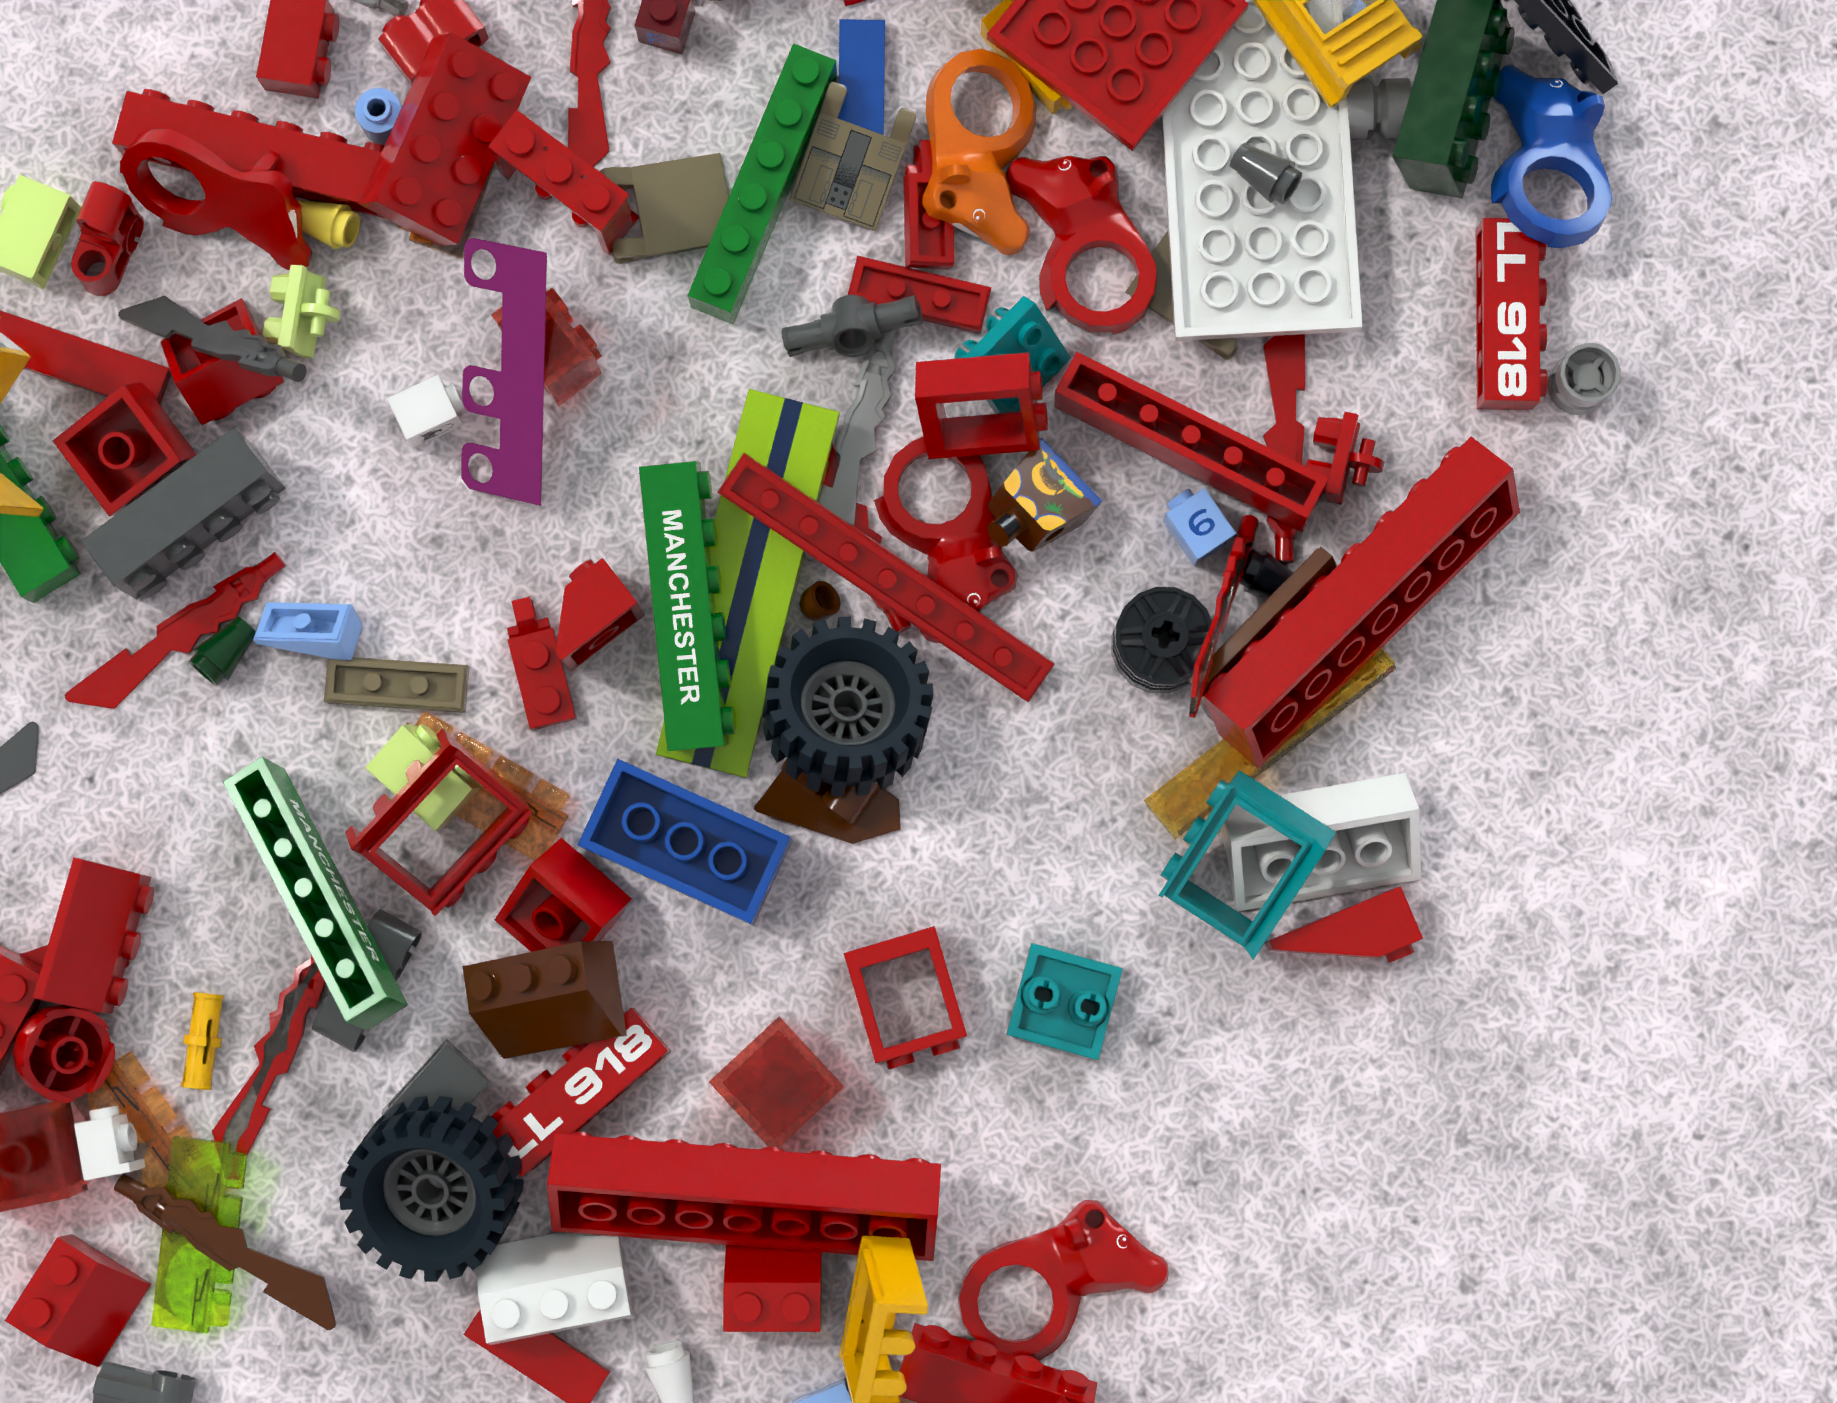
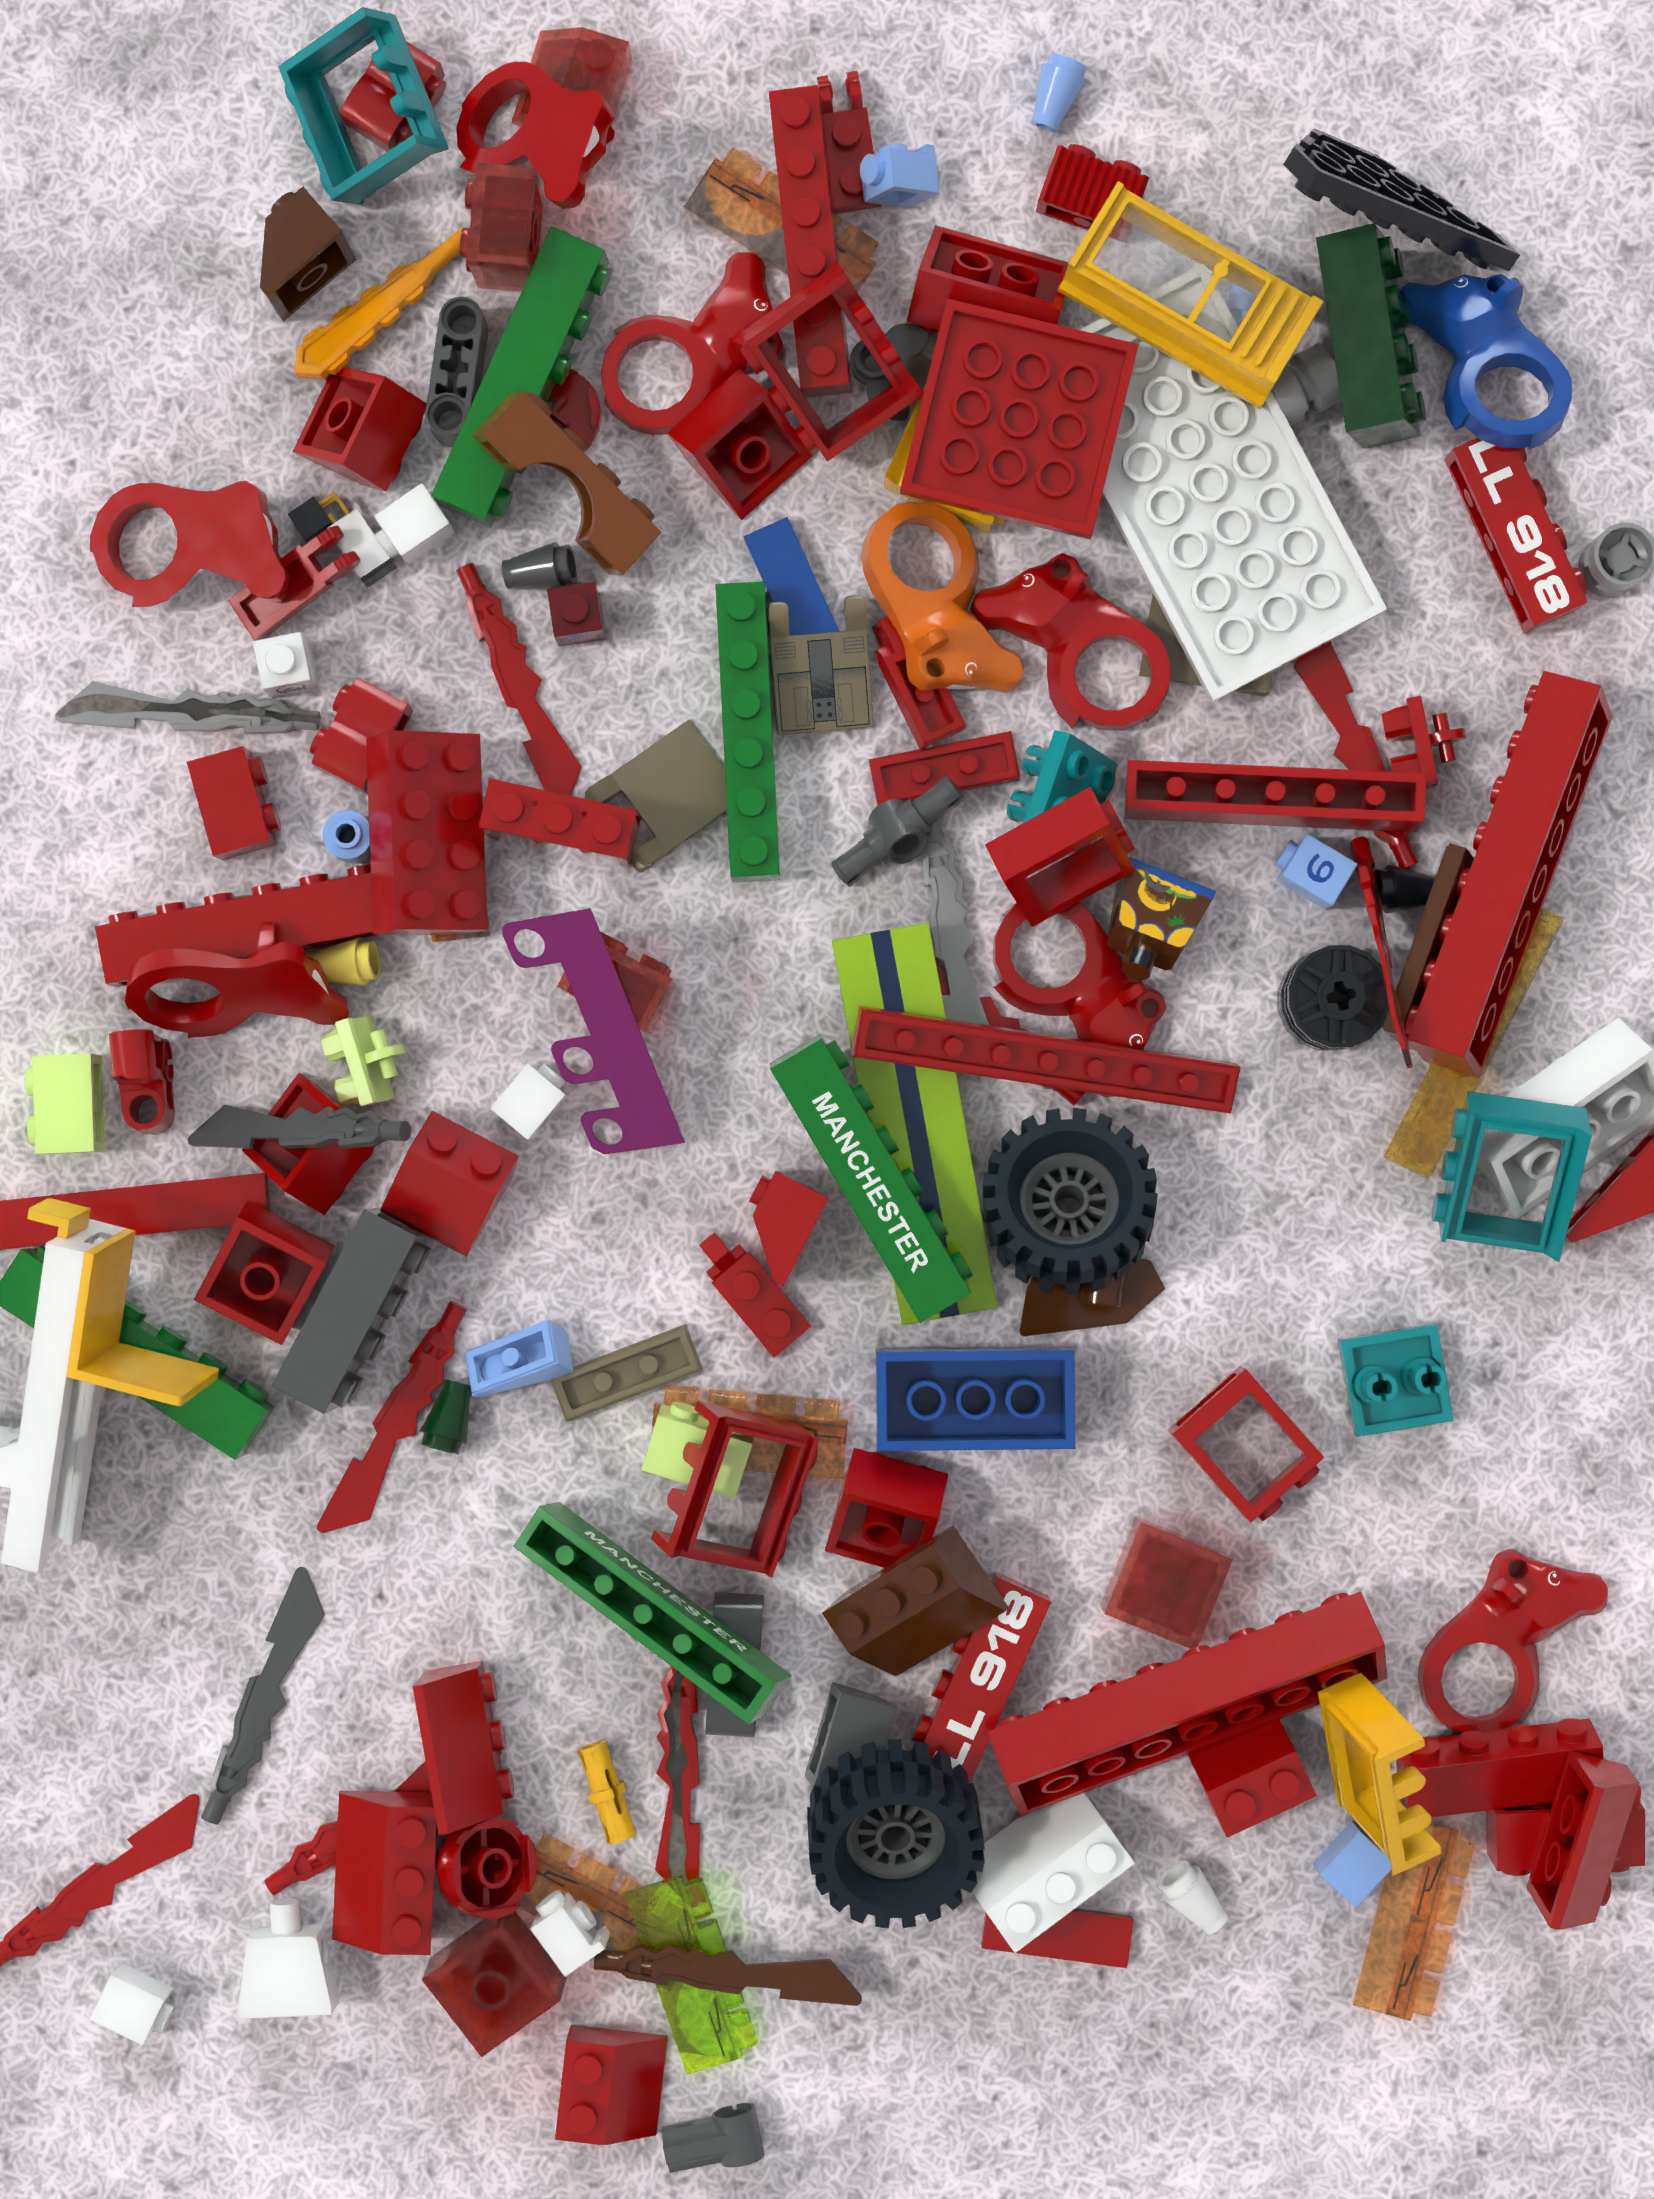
camera: 20 degrees left, 5 degrees up
(322, 446) = (449, 1183): none -> red slope
(819, 601) = (990, 1109): reddish brown hinge -> none
(1267, 173) = (1230, 502): dark grey cone -> none

